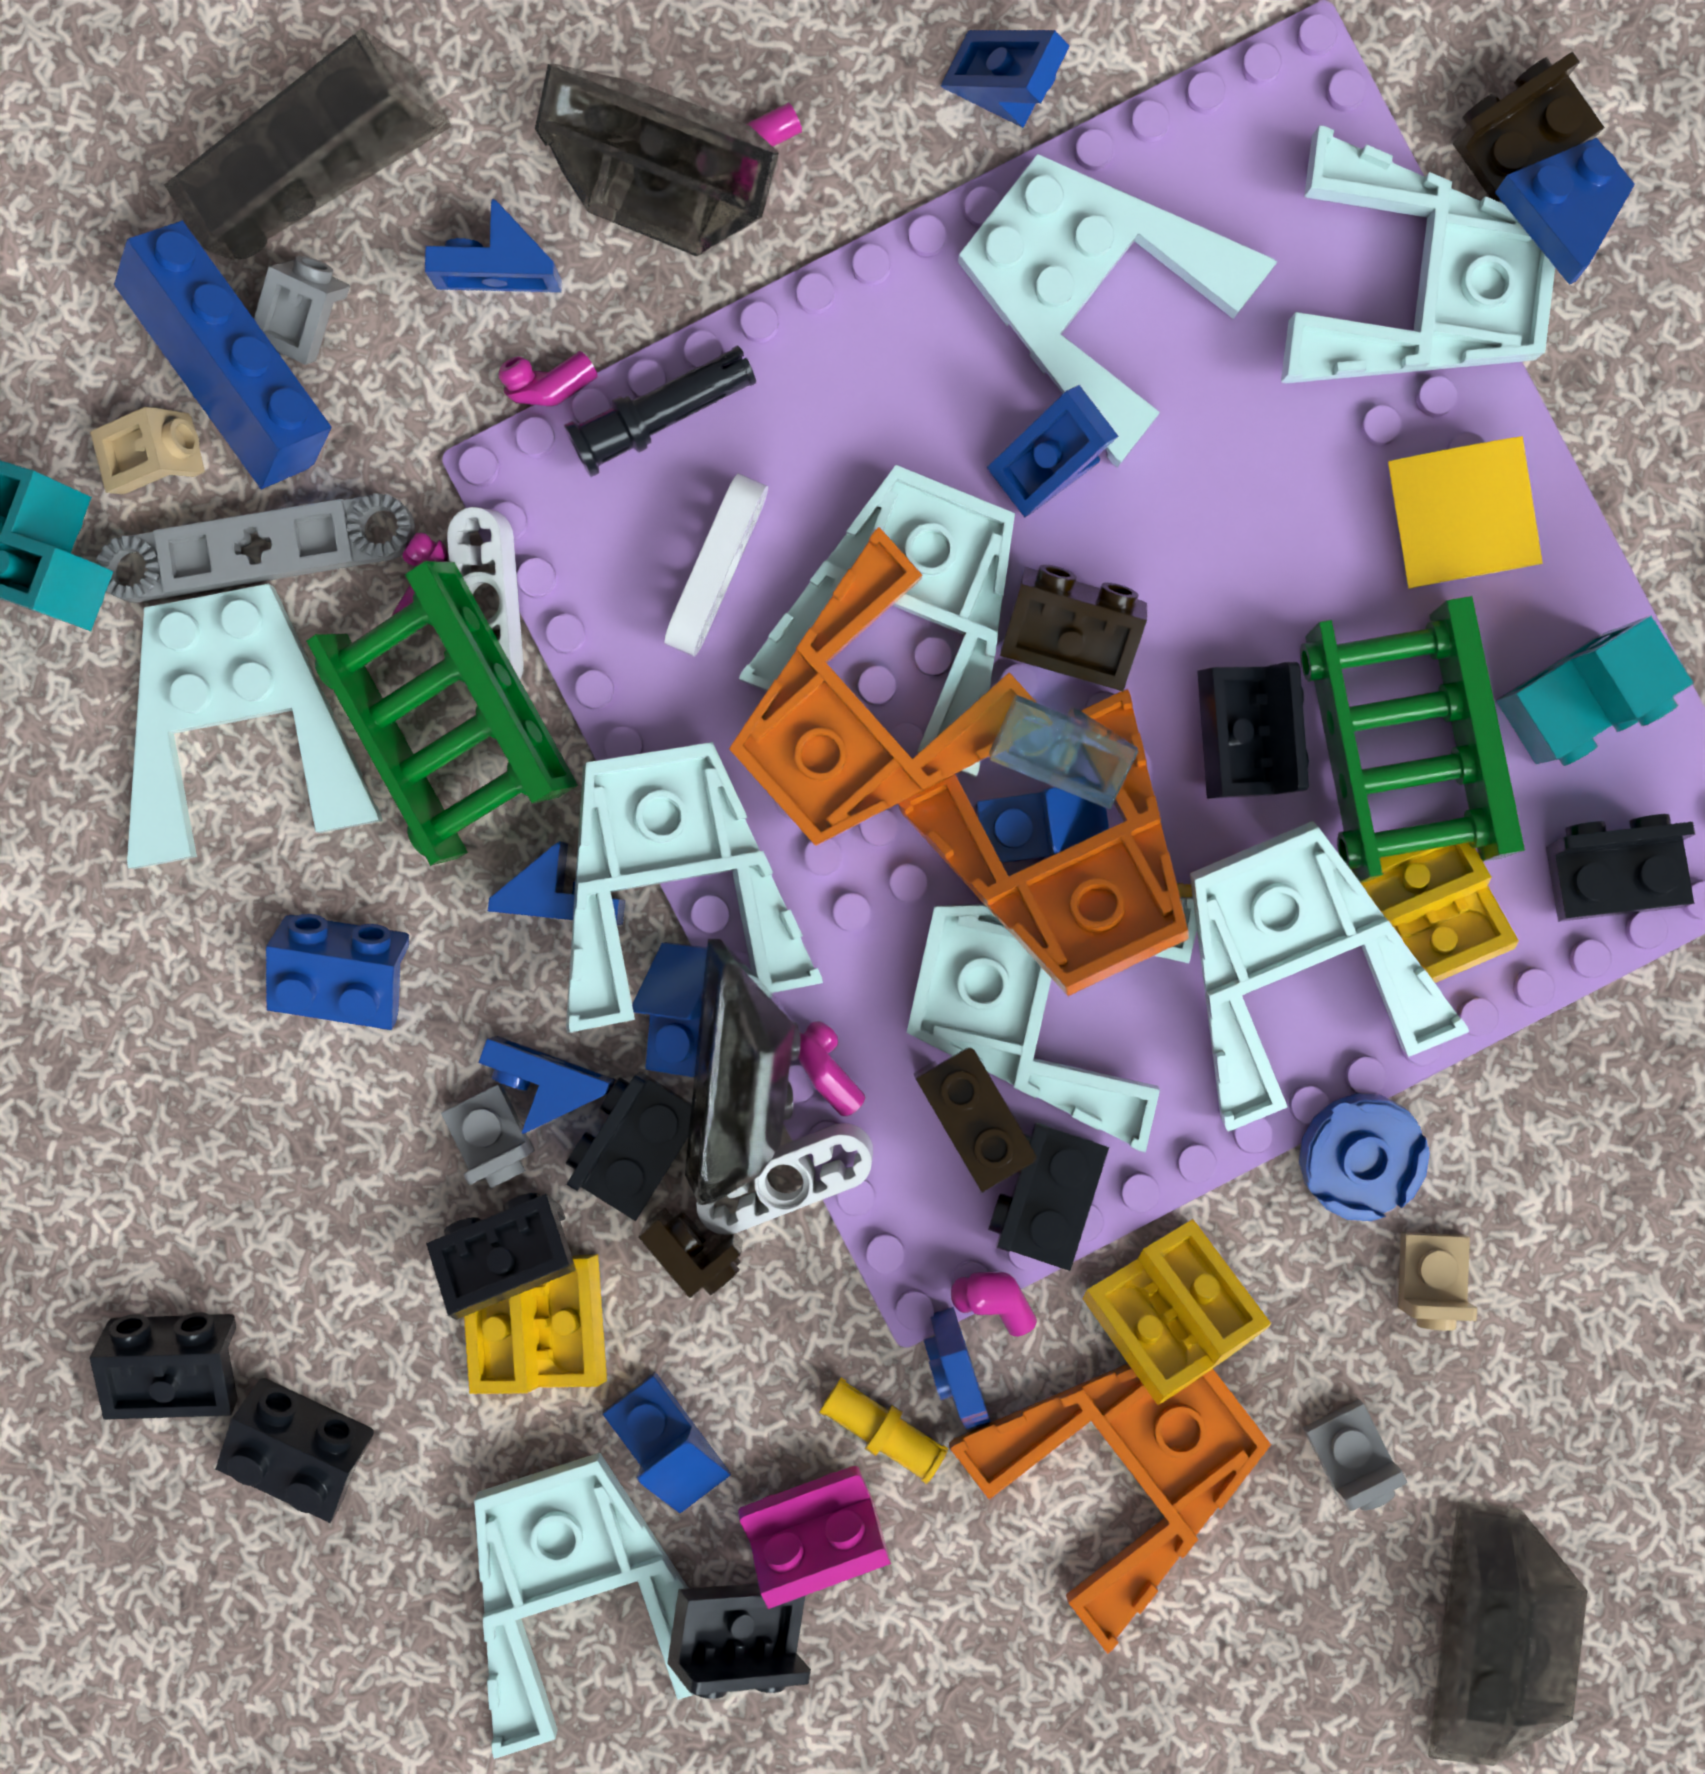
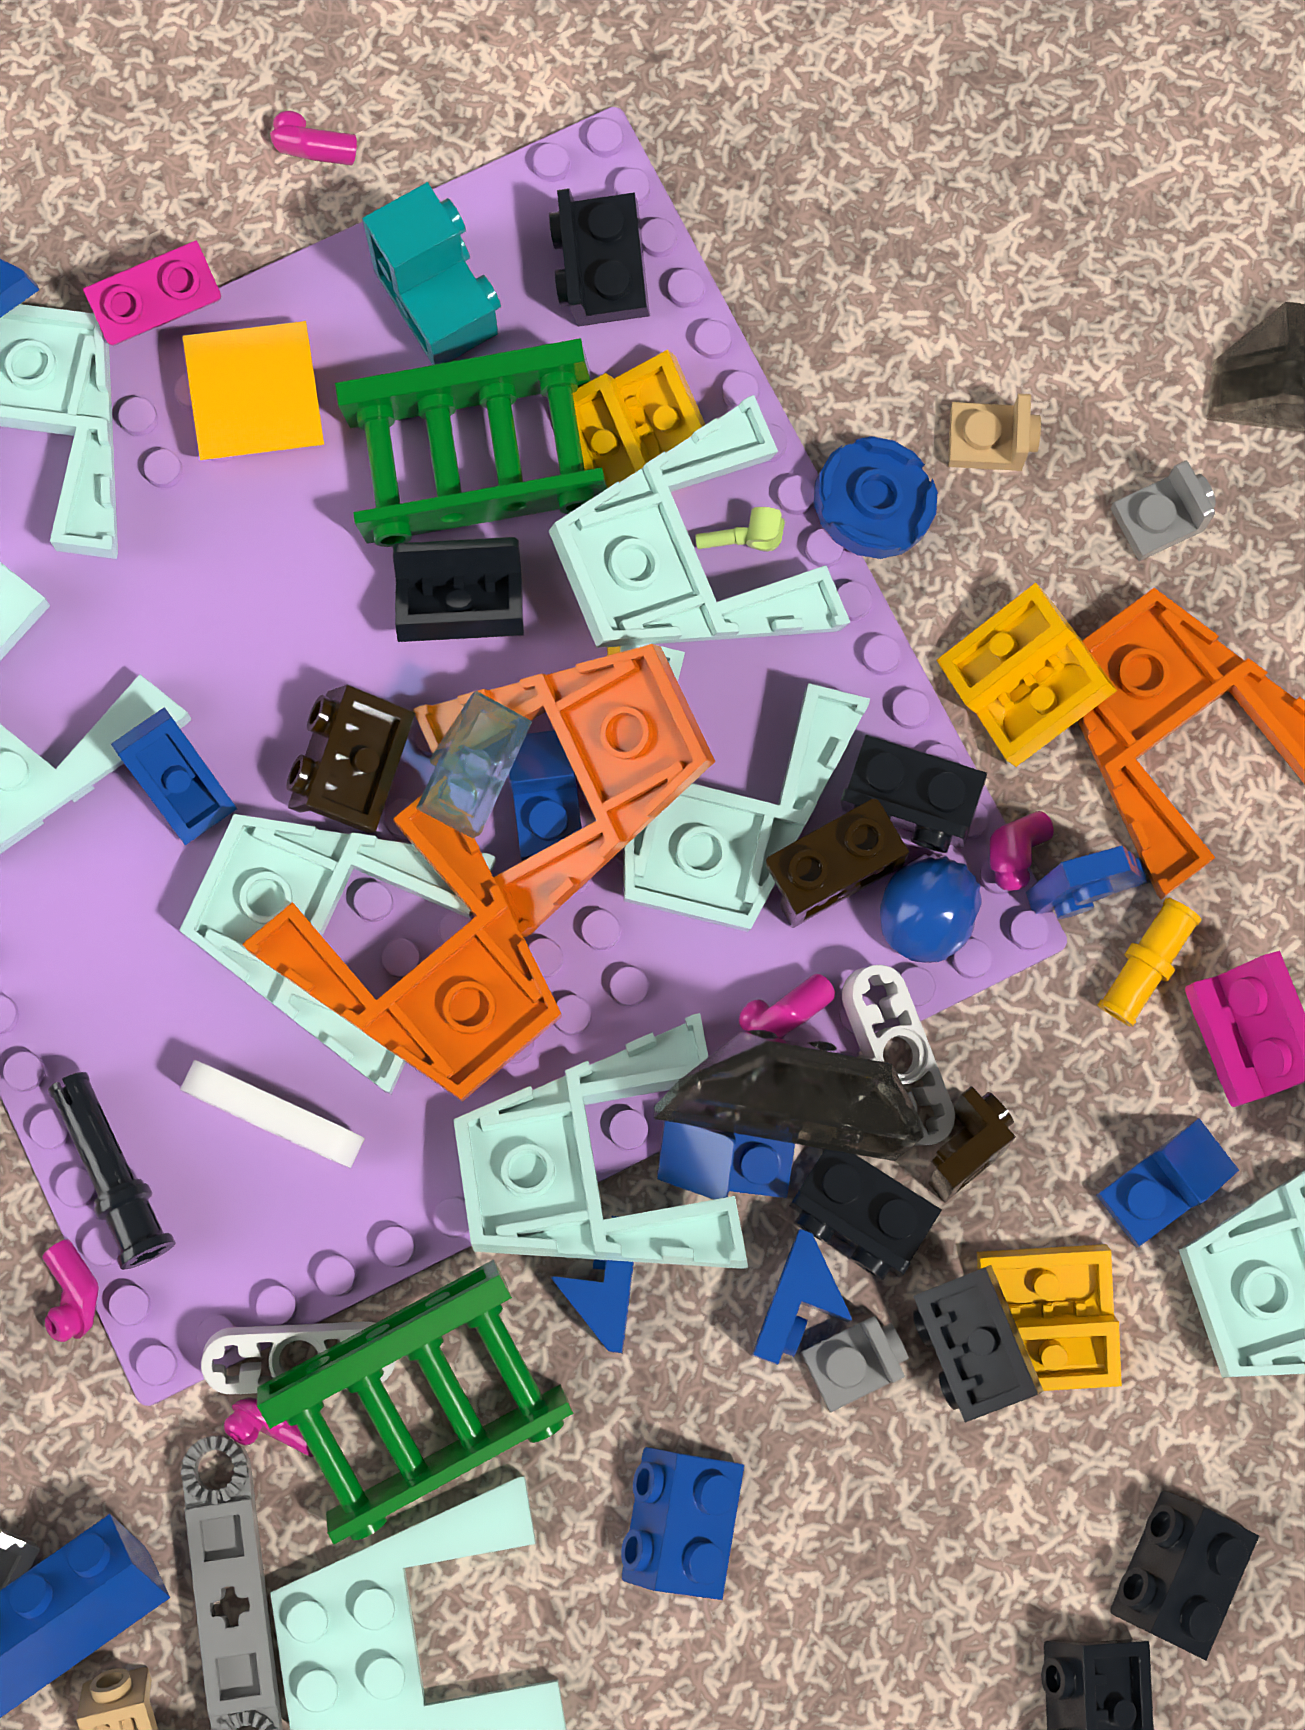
camera: 90 degrees left, 10 degrees down
(932, 1211) = (930, 908): none -> blue hair
(1323, 1042) = (763, 533): none -> yellowish green hand
(1568, 403) = (152, 293): none -> dark pink bracket

